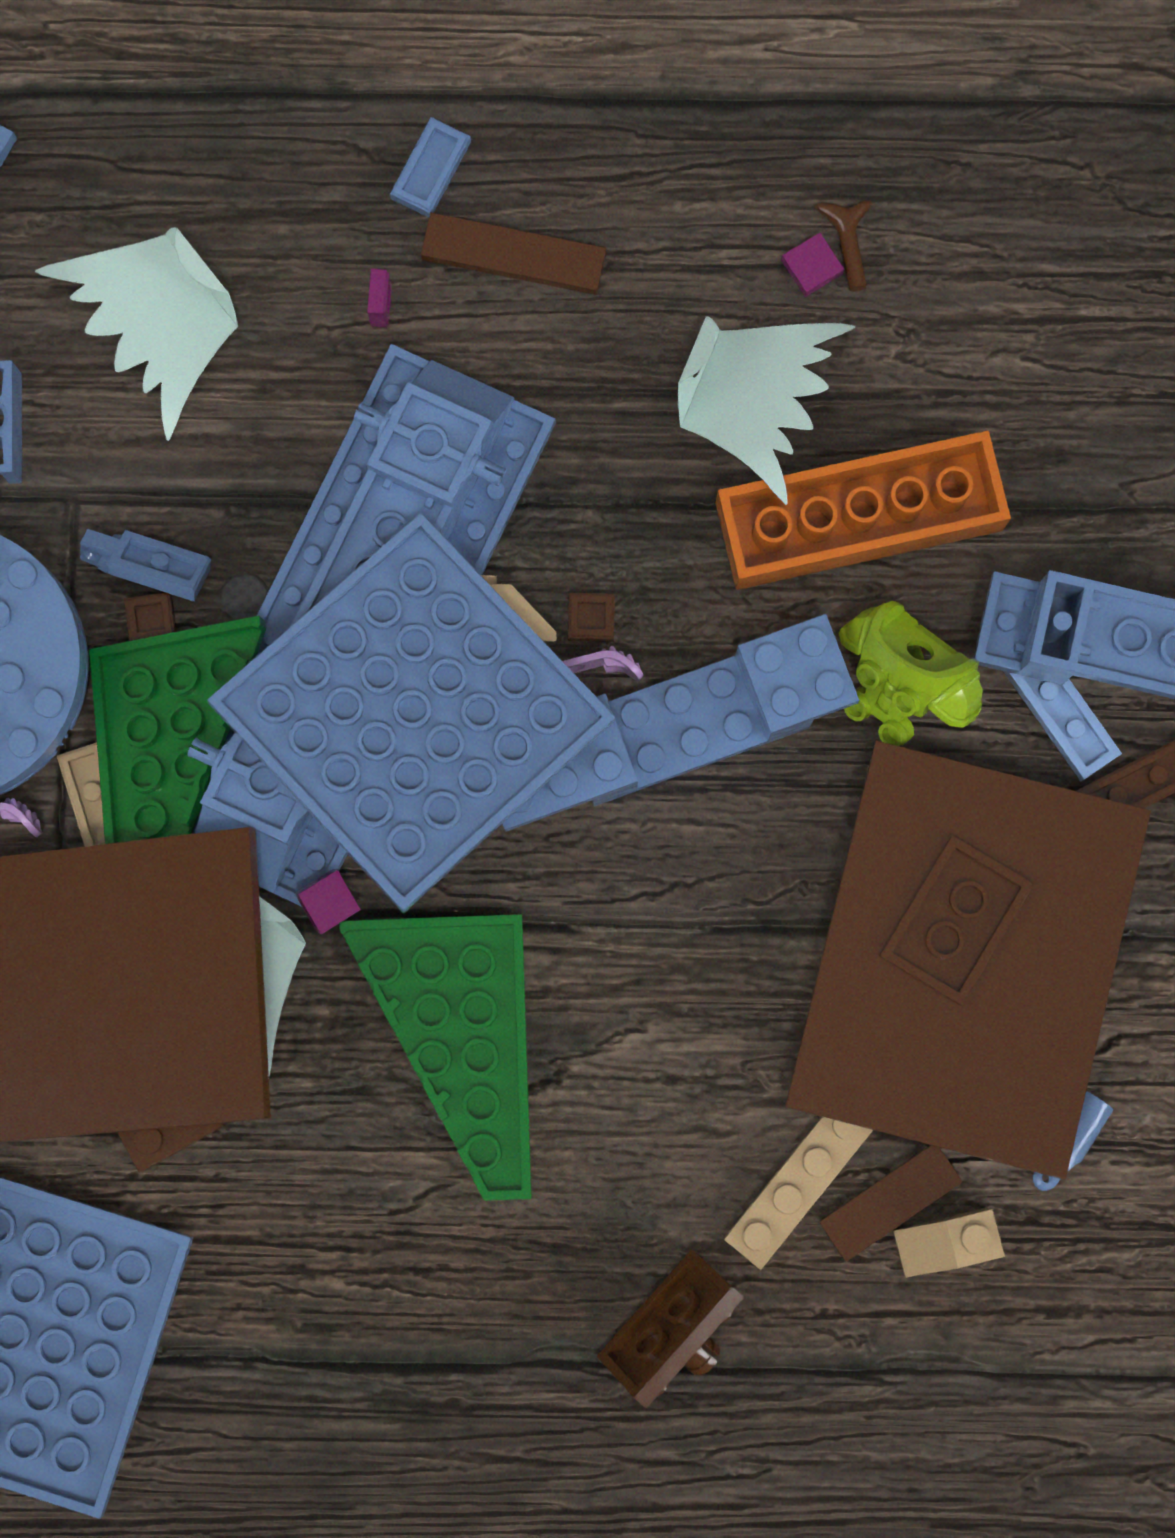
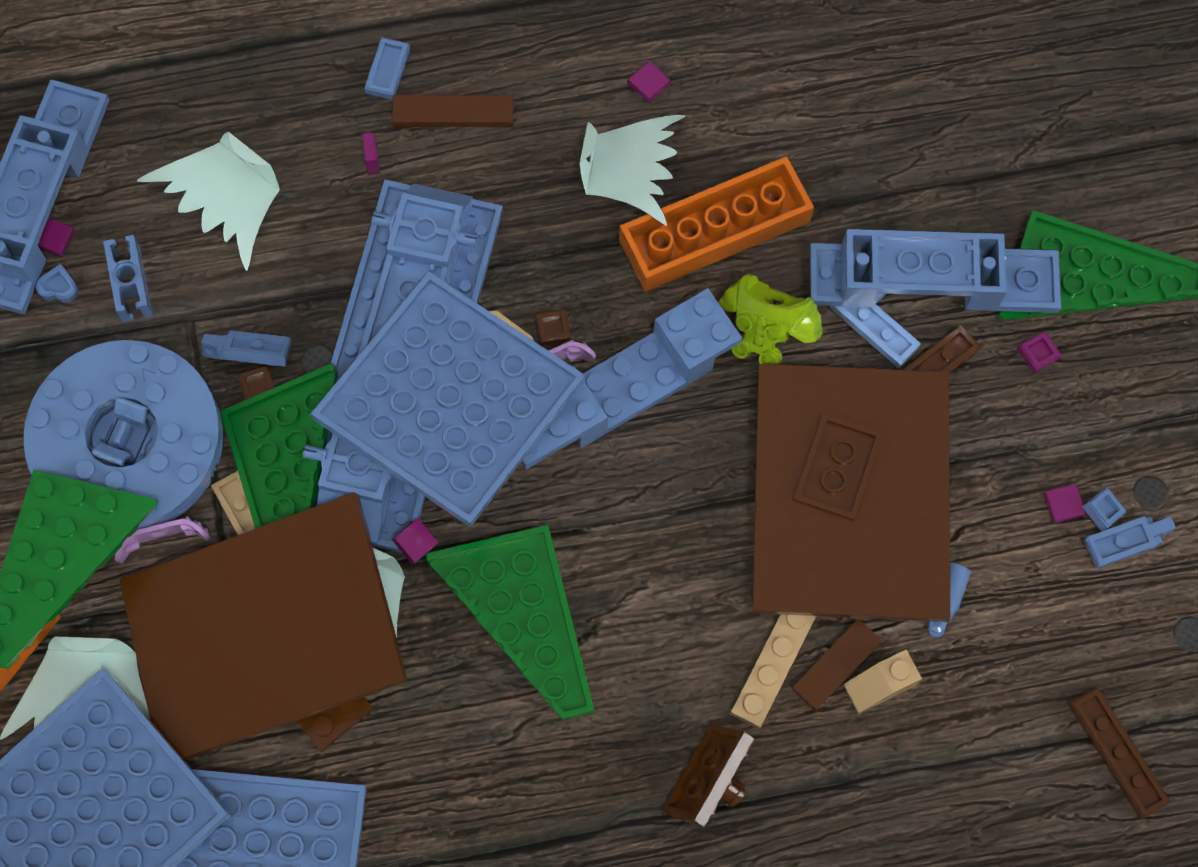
camera: 15 degrees left, 10 degrees down
(845, 222) = (664, 52): reddish brown piece -> none

